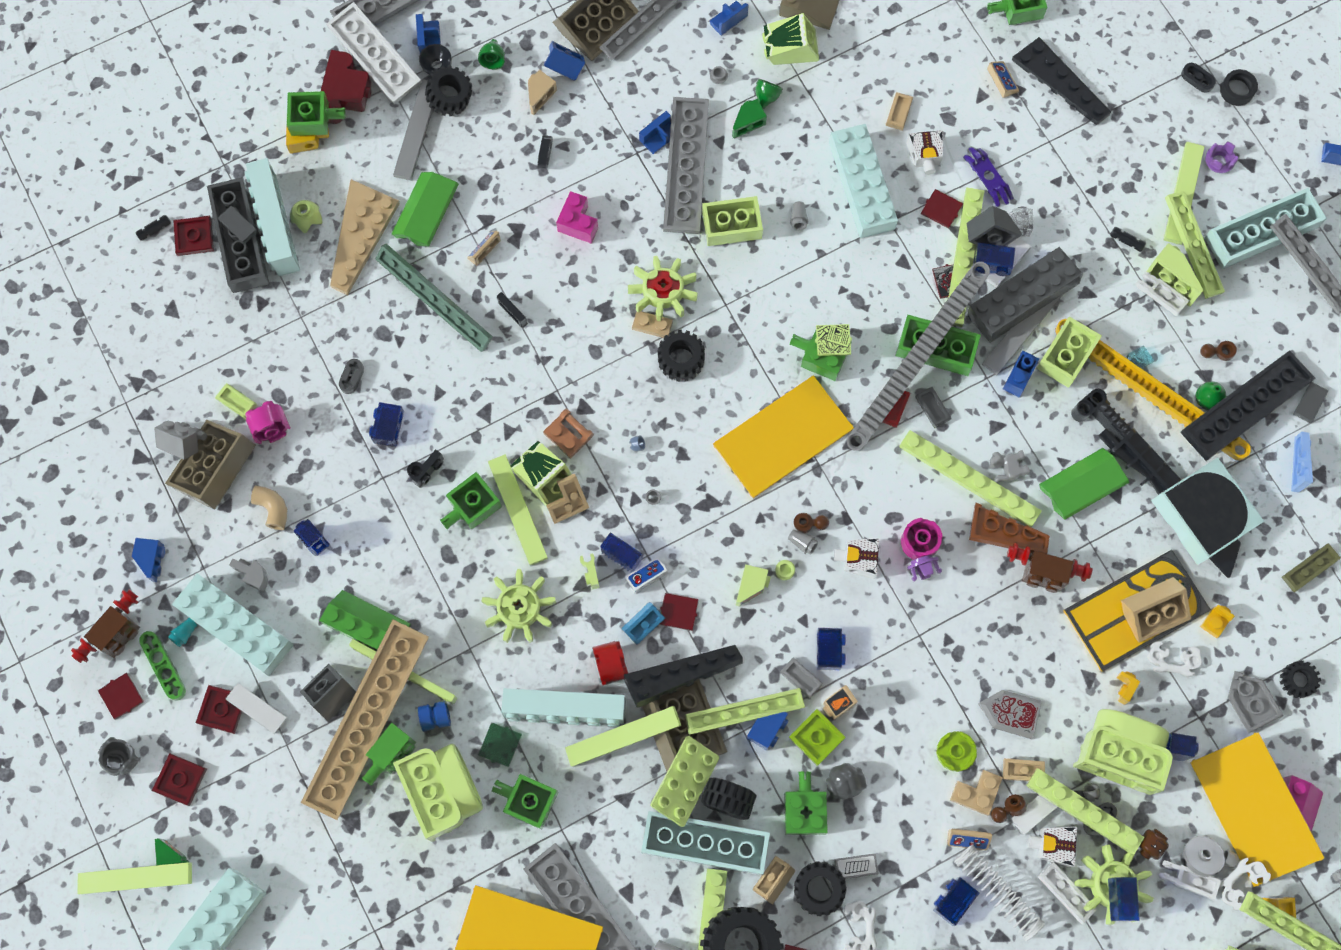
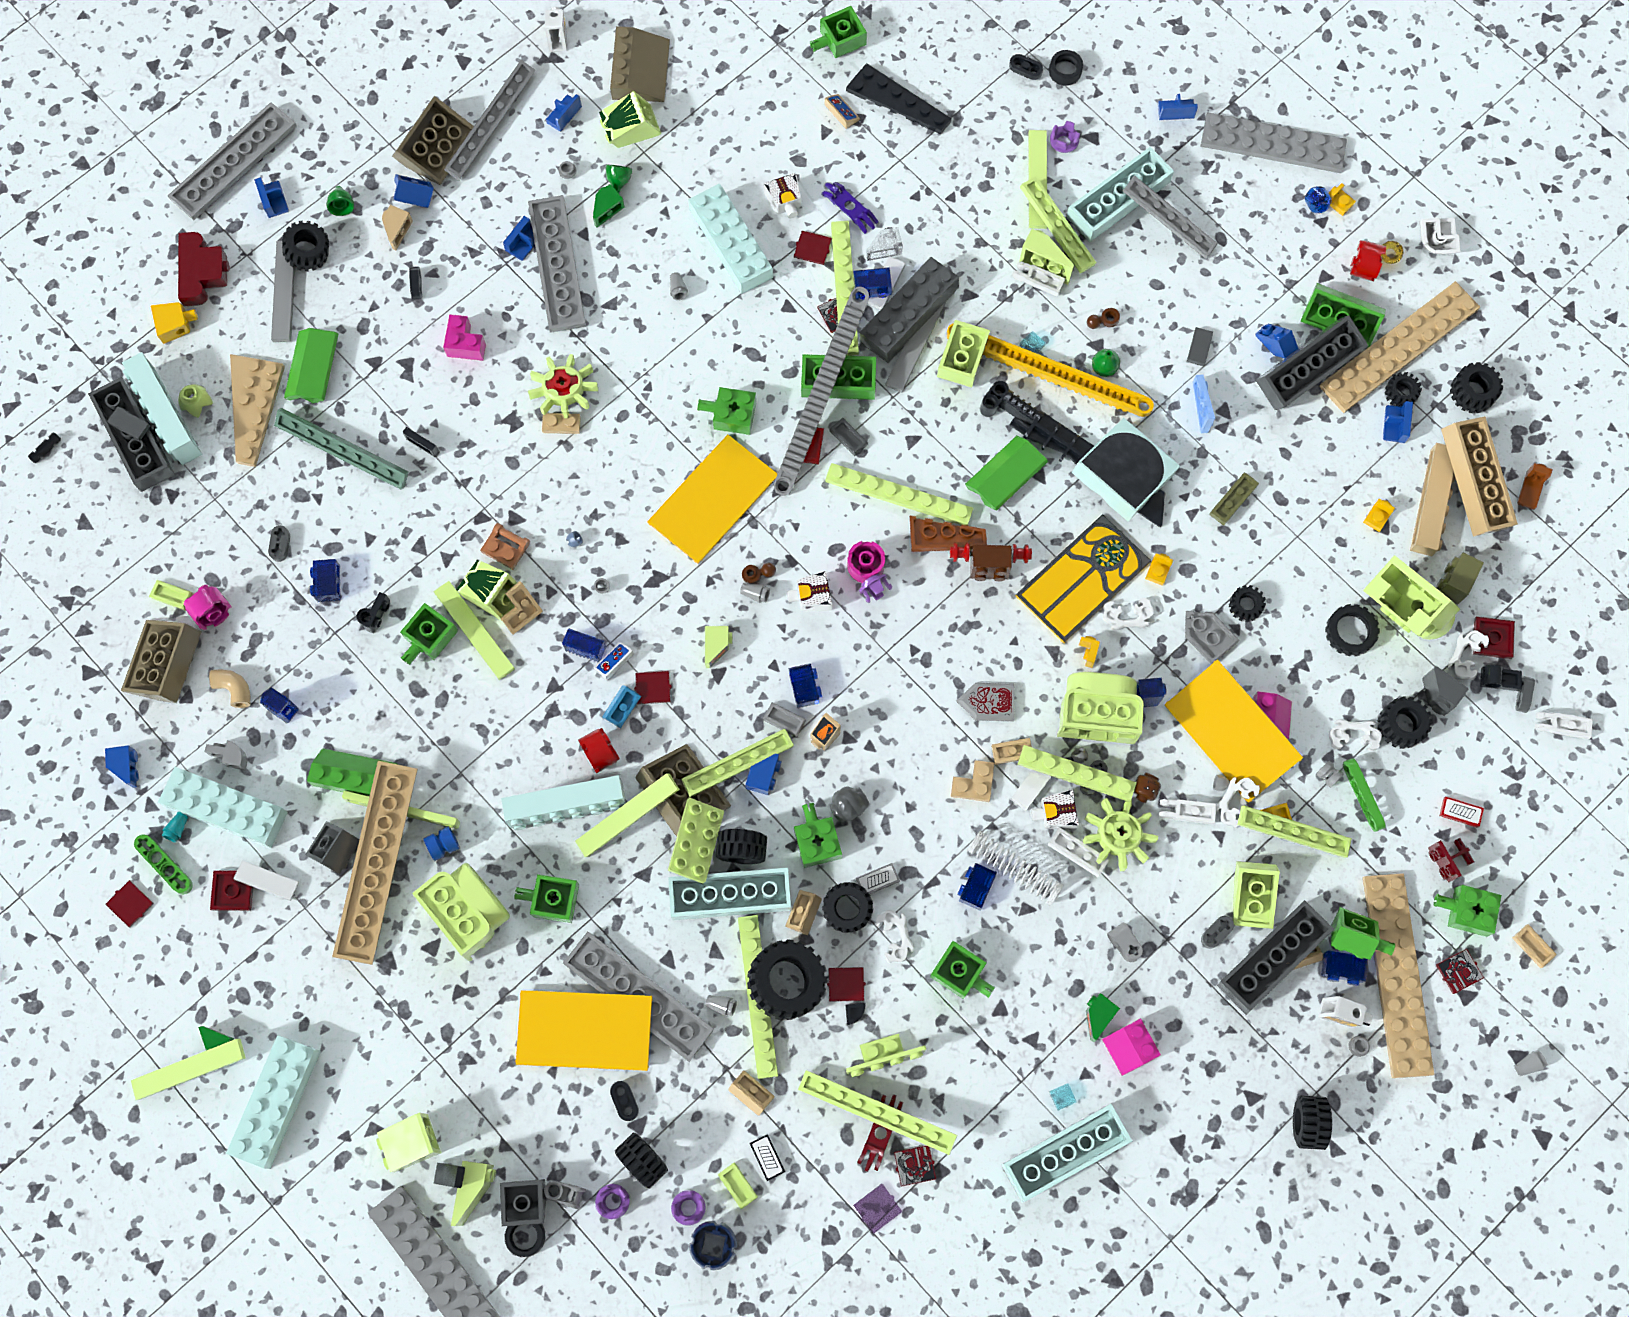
camera: 15 degrees left, 0 degrees up
(110, 631) = (103, 842): reddish brown brick -> none
(117, 757) = (141, 960): dark grey hair -> none
(178, 438) = (122, 644): light grey brick -> none
(179, 779) = (208, 967): dark red tile -> none
(193, 235) = (87, 446): dark red tile -> none
(310, 113) = (173, 299): bright green brick -> none
(374, 53) = (222, 226): white plate -> none
(388, 749) = (405, 880): bright green brick -> none
(434, 53) = (280, 214): black piece -> none
(484, 247) = (379, 389): tan slope -> none
(500, 744) = (512, 854): clear green piece -> none
(524, 616) = (490, 712): yellowish green gear -> none
(591, 576) = (560, 675): yellowish green plate -> none
(655, 681) = (641, 758): black wing -> none
(681, 341) = (592, 432): black tyre -> none
(732, 221) = (614, 306): yellowish green brick -> none
(785, 570) = (744, 623): yellowish green tile -> none
(817, 737) = (812, 770): lime plate -> none
(833, 340) = (737, 395): yellowish green piece -> none
(899, 111) = (750, 164): tan tile -> none
(956, 751) = (946, 750): lime tile -> none
(966, 838) = (971, 827): slope -> none
(993, 227) = (864, 253): dark grey slope -> none
(1000, 814) = (1011, 786): reddish brown plate -> none
(1011, 466) = (933, 471): light grey animal -> none
(1021, 374) = (923, 385): blue slope -> none
(1123, 899) = (1129, 842): clear blue brick -> none
(1128, 239) = (994, 234): black axle -> none
(1156, 609) = (1100, 572): tan slope -> none
(1200, 864) = (1192, 793): light grey plate -> none
(1247, 405) = (1141, 363): black plate -> none

